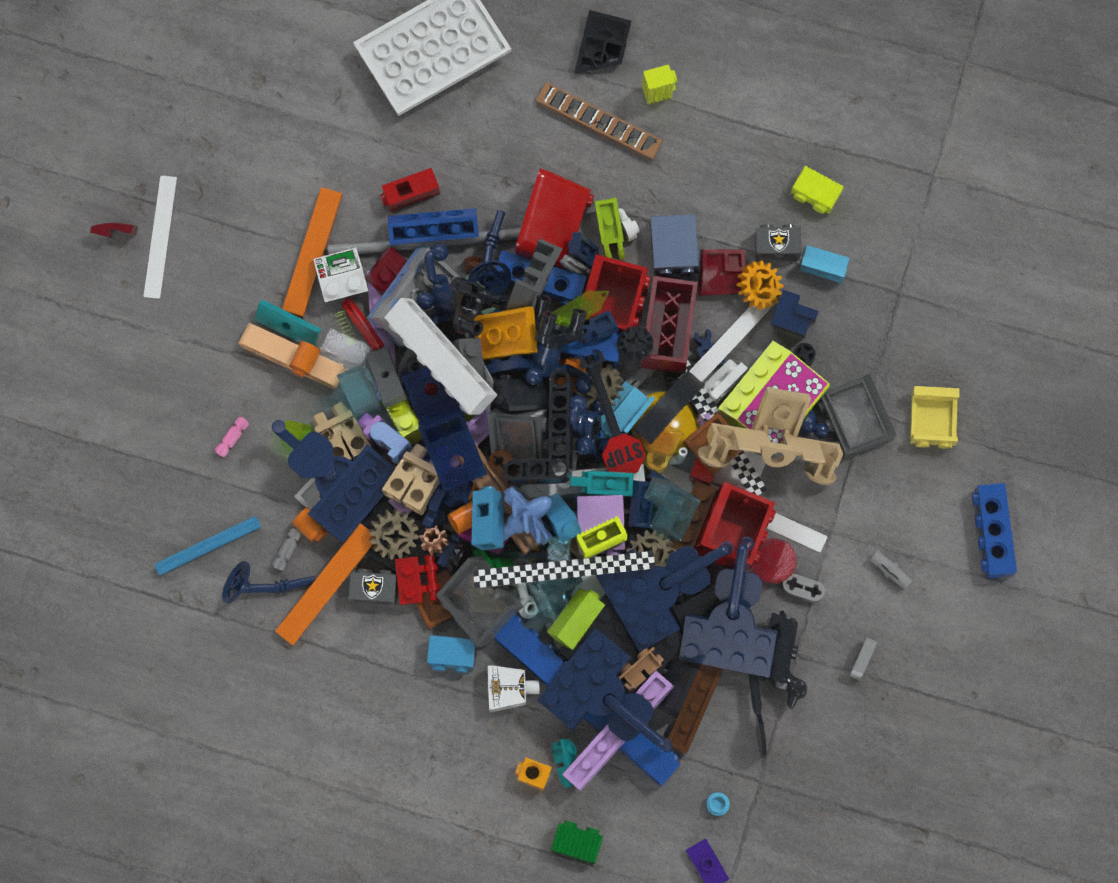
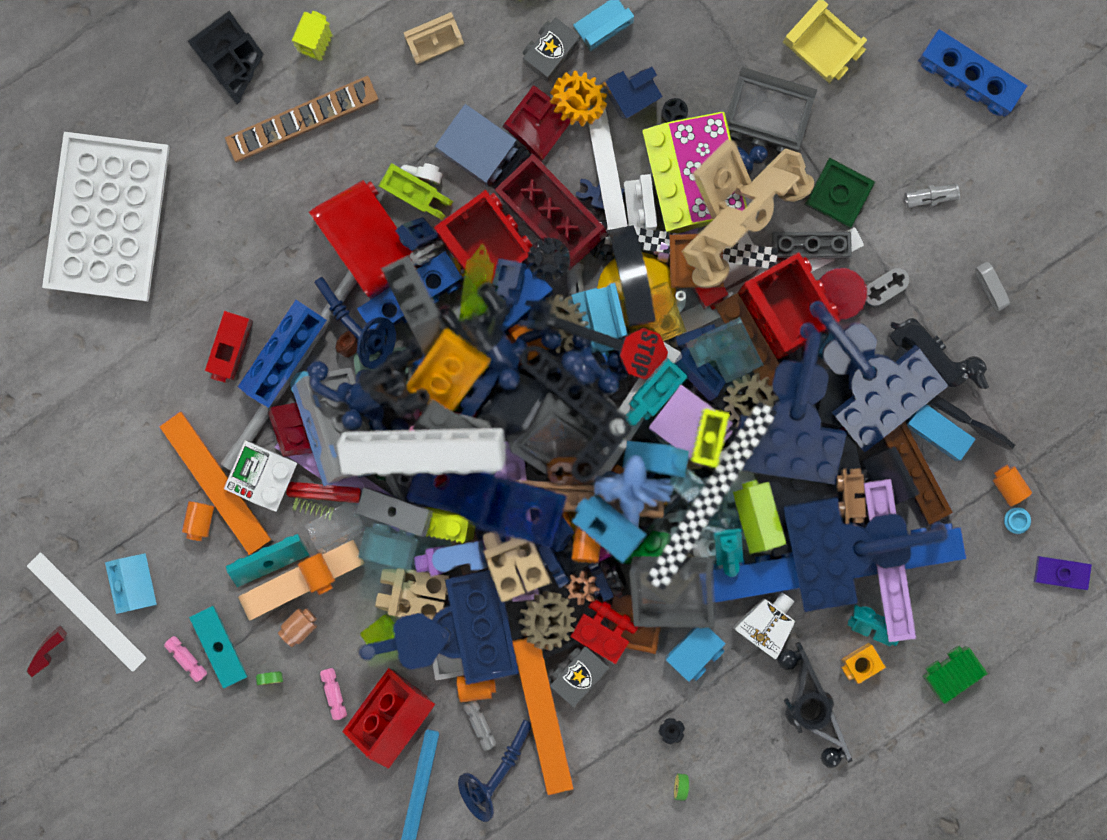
camera: 45 degrees left, 10 degrees up
(179, 323) = (185, 659): none -> bright pink axle
(202, 249) = (130, 583): none -> medium azure panel
(209, 325) = (225, 662): none -> teal tile
(209, 386) = (269, 678): none -> bright green tile
(243, 485) = (388, 718): none -> red slope
(258, 378) = (297, 627): none -> nougat brick
(278, 259) = (197, 520): none -> orange brick
(351, 716) = (681, 787): none -> bright green tile
(383, 675) = (668, 737): none -> black plate
(495, 720) = (830, 756): none -> black piece
(537, 616) = (729, 550): none -> teal hinge
(722, 162) = (433, 38): none -> tan hinge
(734, 700) = (940, 432): none -> dark azure brick
(738, 779) = (1011, 485): none -> orange brick
(799, 527) = (828, 244): none -> dark grey tile
(841, 507) = (839, 193): none -> dark green tile

